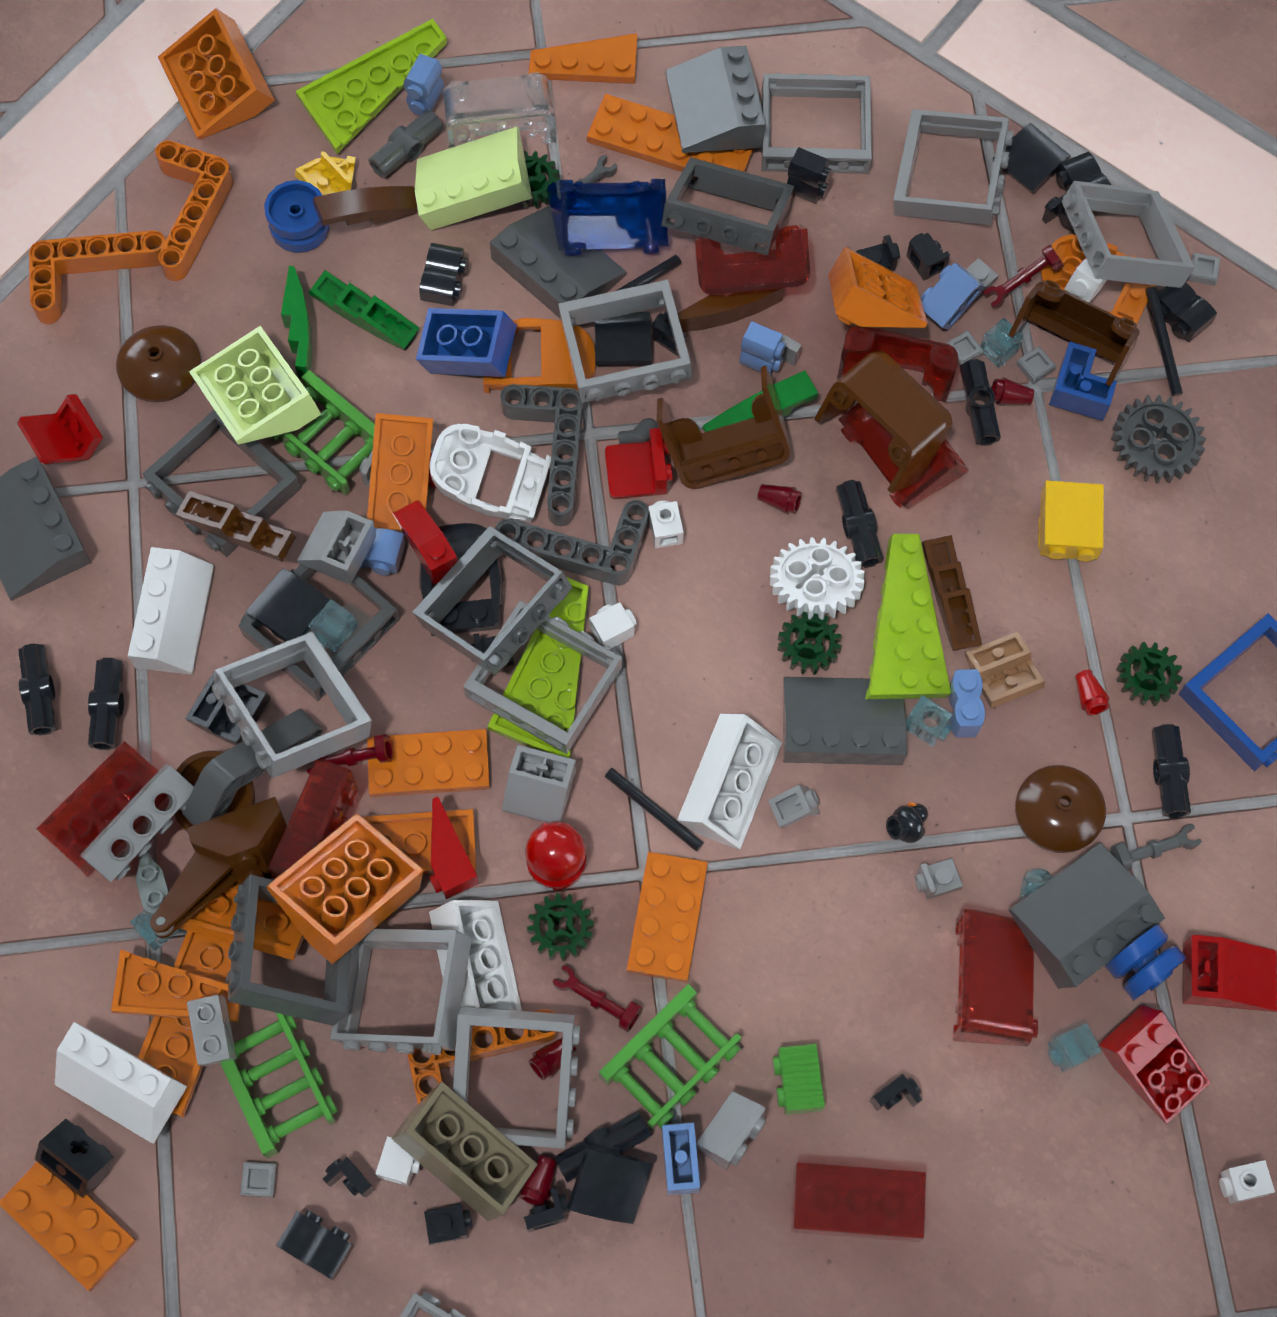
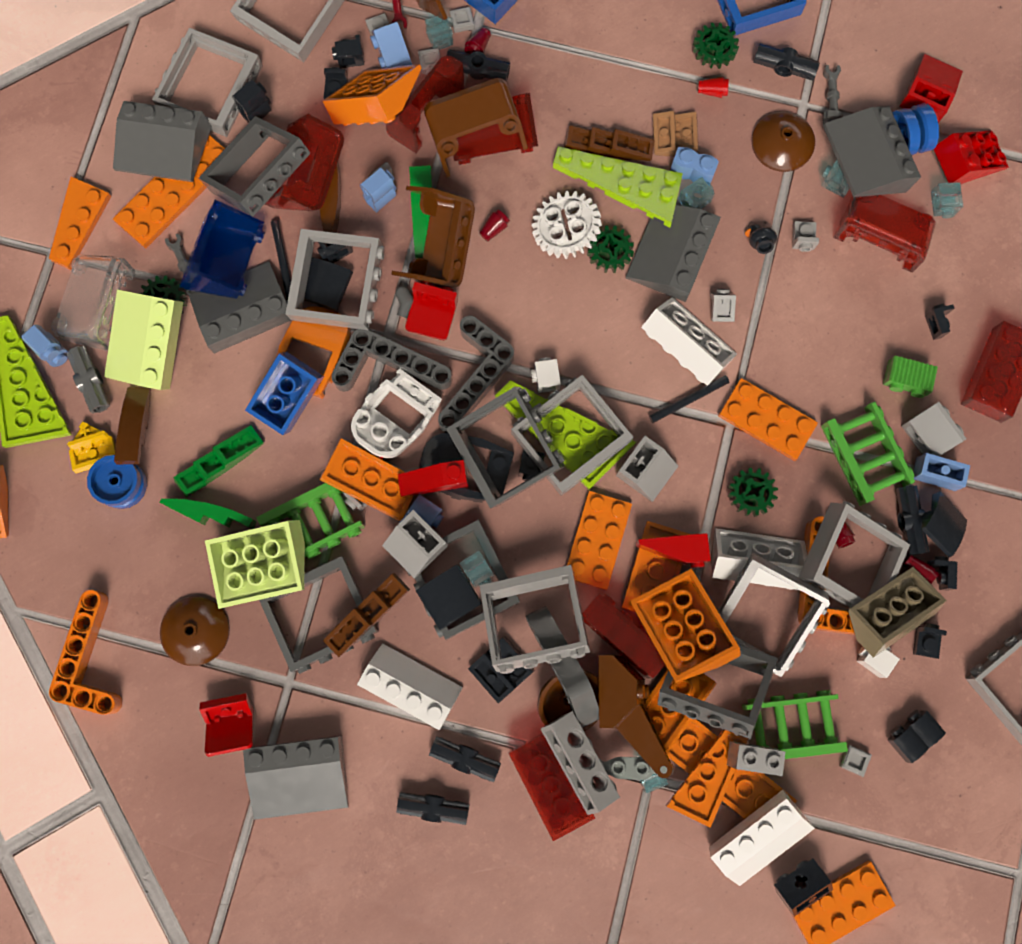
camera: 70 degrees left, 10 degrees up
(196, 205) = (71, 556): orange beam -> none
(355, 1179) = (881, 694): black bracket -> none
(382, 751) = (583, 568): dark red piece -> none
(442, 274) = (214, 392): black brick -> none
(555, 855) = (702, 476): red tile -> none
(626, 1017) = (829, 471): dark red piece -> none
(665, 524) = (483, 308): white brick -> none
(859, 523) = (535, 181): black piece -> none
(1071, 520) = (592, 45): yellow brick -> none

